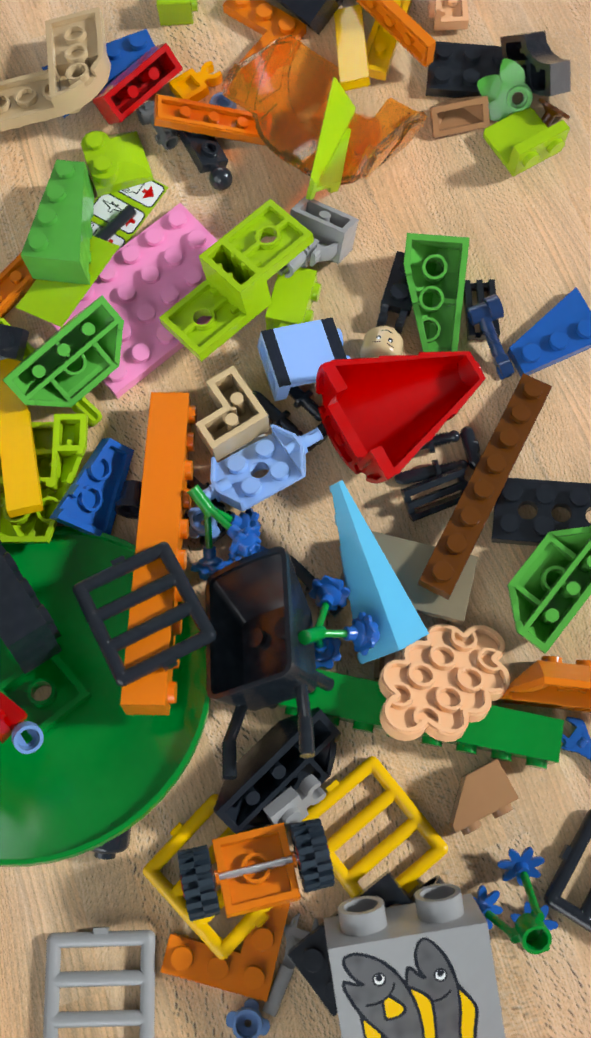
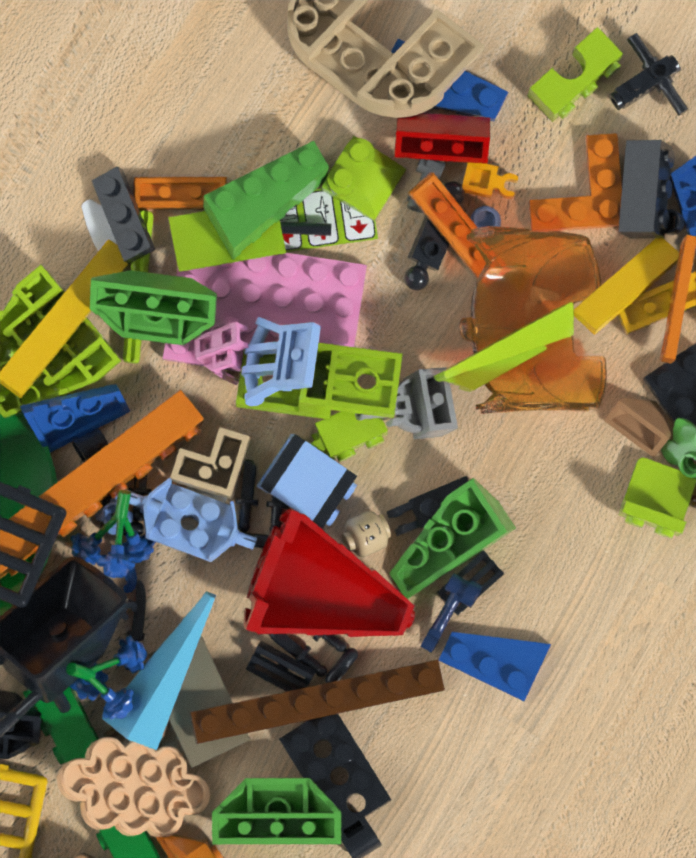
camera: 45 degrees right, 10 degrees up
(138, 336) = (214, 356): none -> bright pink piece
(207, 272) = (293, 364): none -> light blue plate

